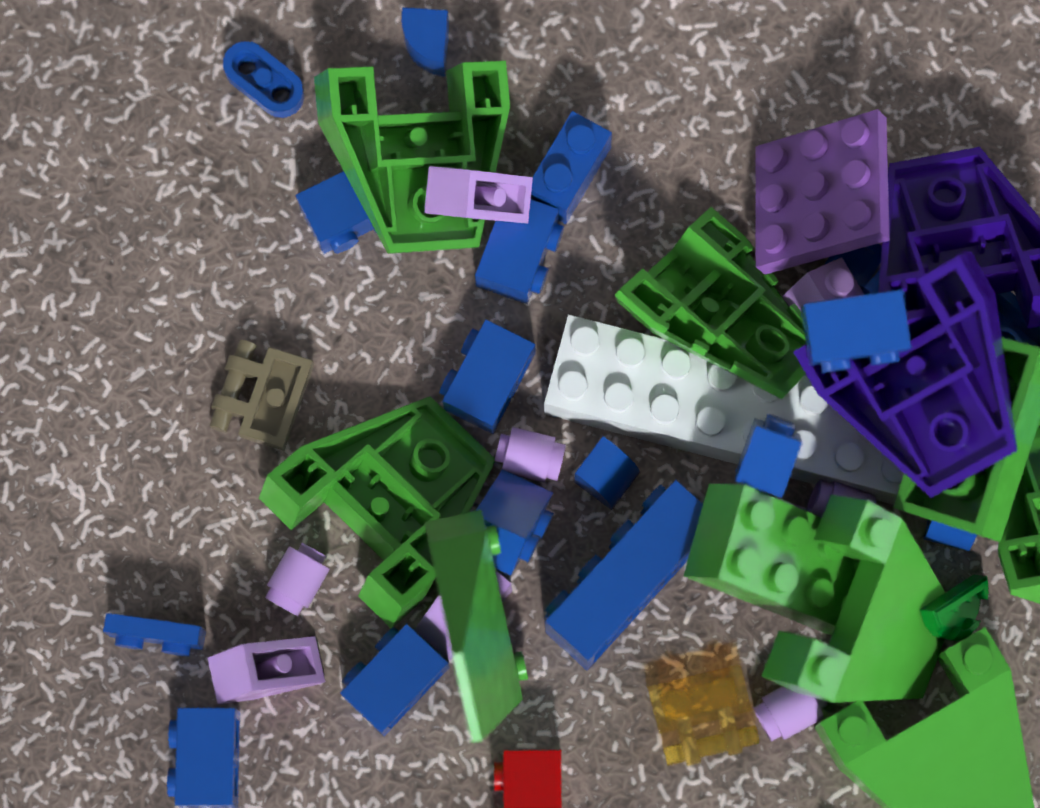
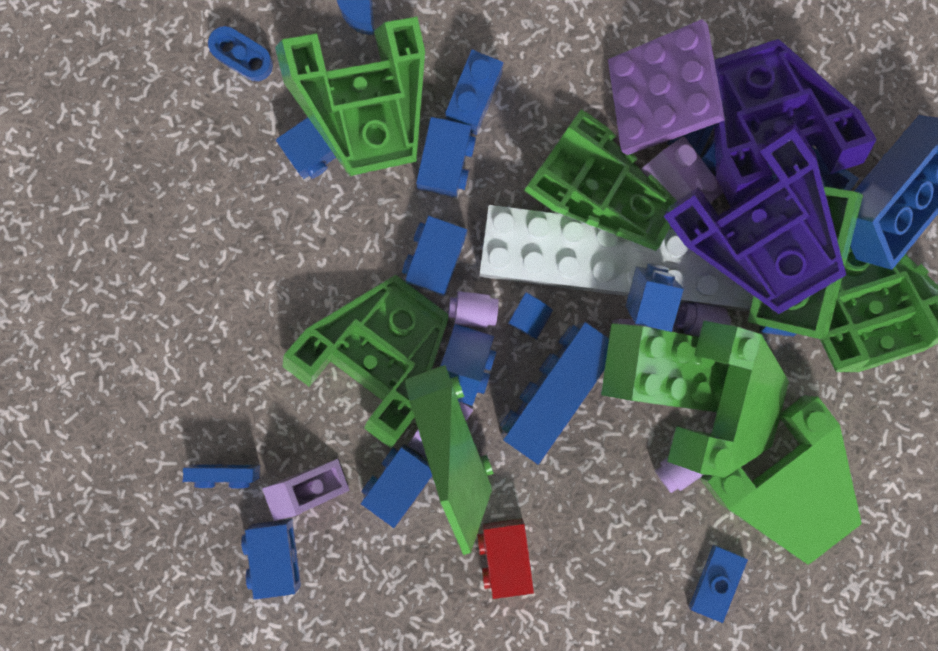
camera: 15 degrees left, 10 degrees up
(275, 397) = (283, 290): dark tan plate -> none
(297, 578) = (318, 421): lavender brick -> none
(478, 194) = (410, 123): lavender slope -> none
(698, 701) = (617, 469): clear yellow plate -> none
(856, 329) = (715, 195): blue brick -> none
(955, 612) = (789, 388): green tile -> none

